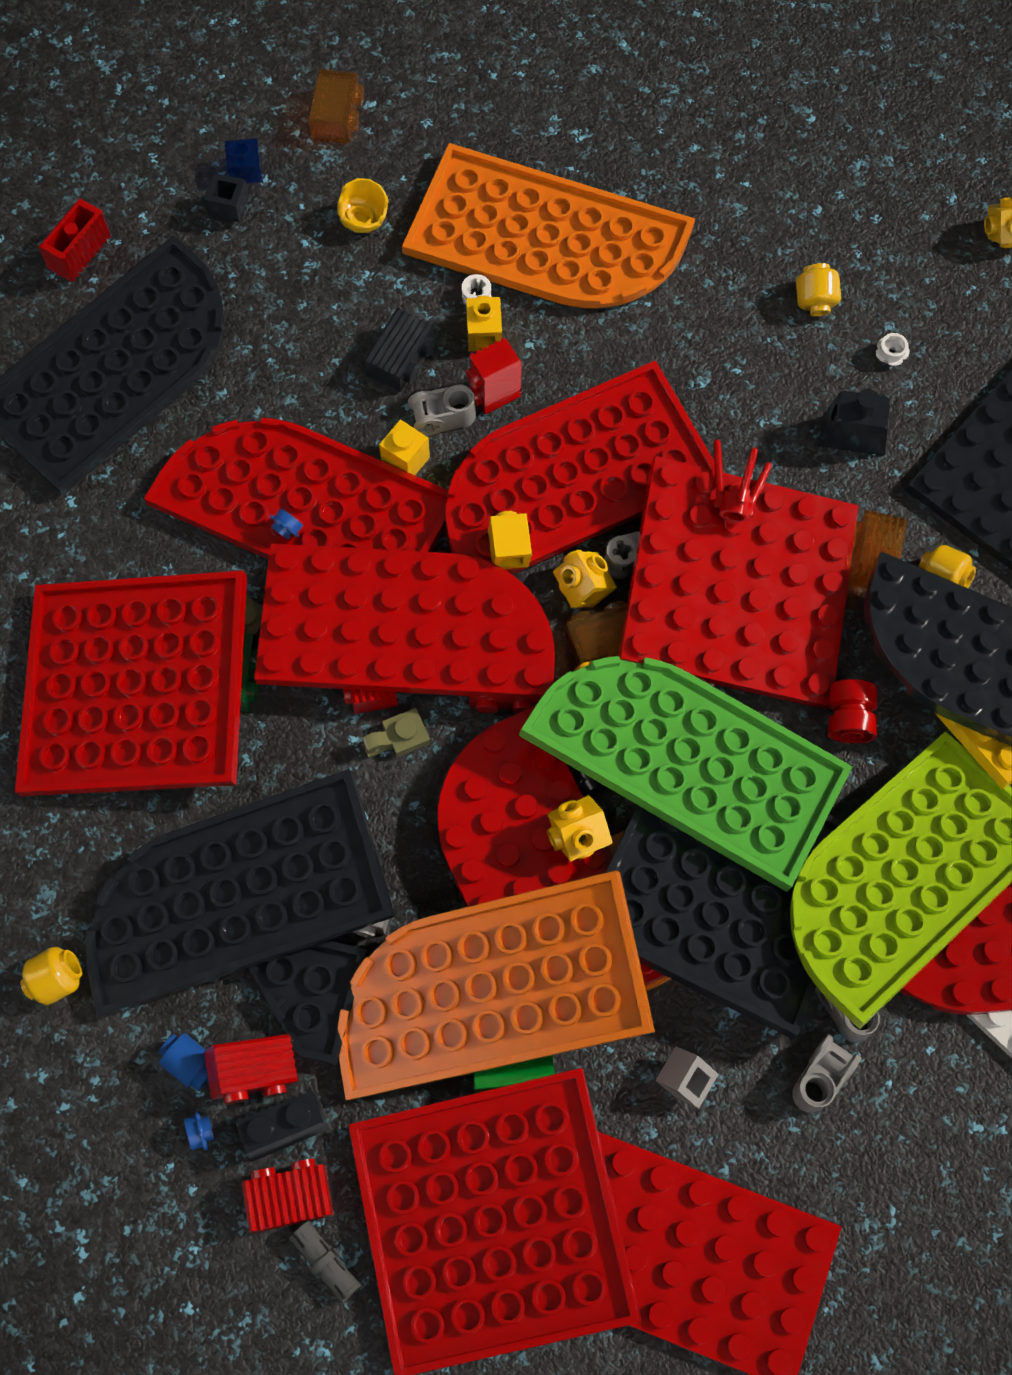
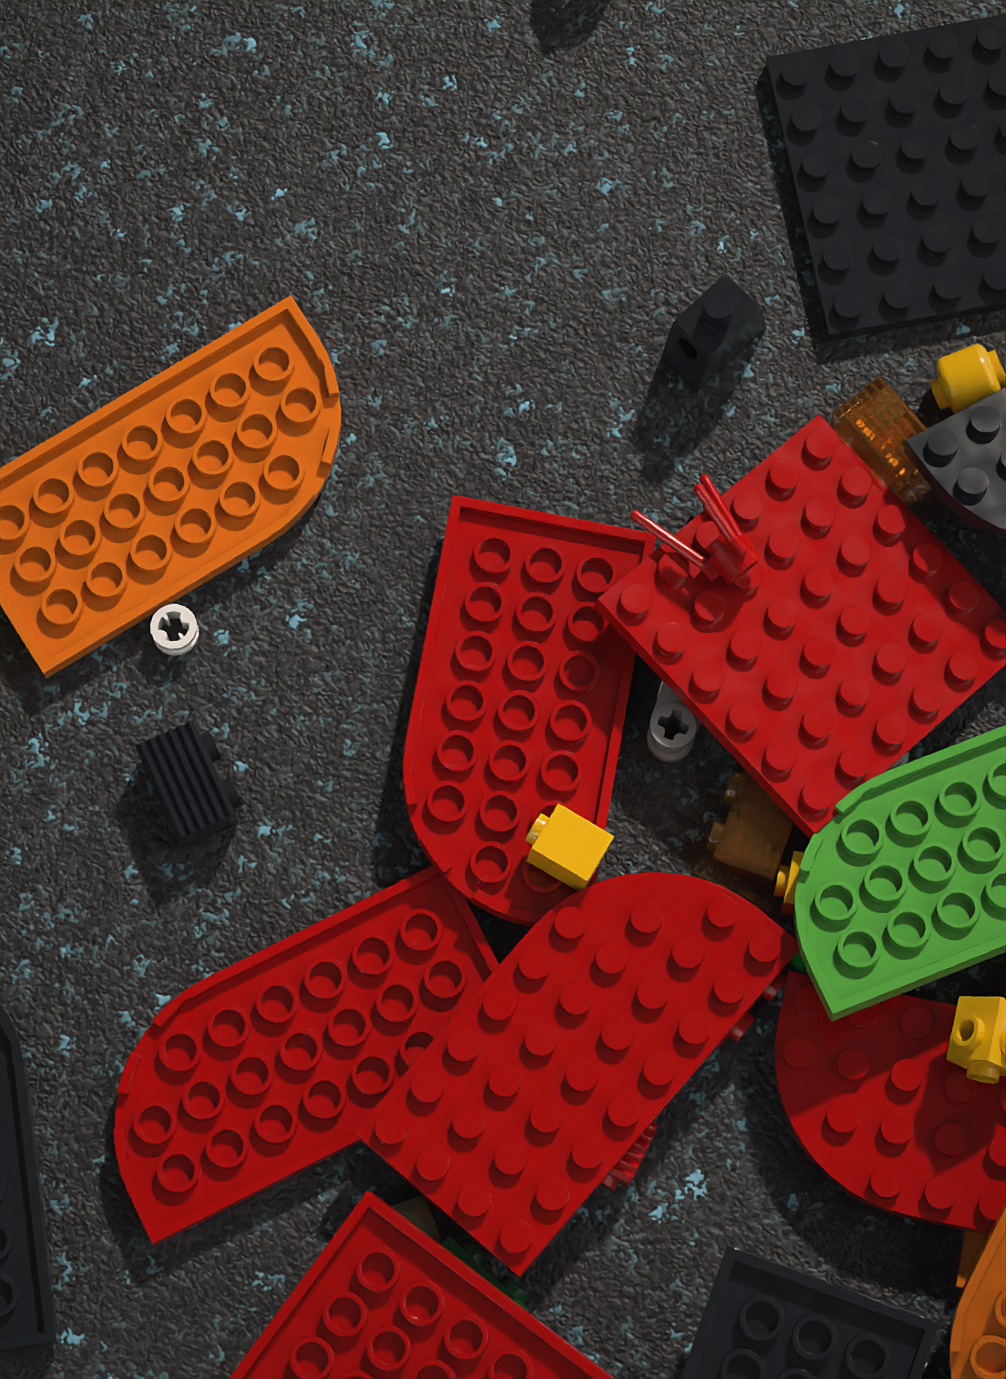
camera: 50 degrees left, 5 degrees up
(286, 524) = (332, 1094): blue plate -> none
(401, 733) = (699, 1152): olive plate -> none
(405, 448) = (335, 878): yellow brick -> none
(440, 409) = (309, 796): light grey piece -> none
(483, 322) = (232, 654): yellow brick -> none
(494, 375) = (327, 700): red brick -> none
(584, 579) = (669, 795): yellow brick -> none
(818, 289) = (501, 230): yellow head -> none
(892, 342) = (646, 198): white plate -> none

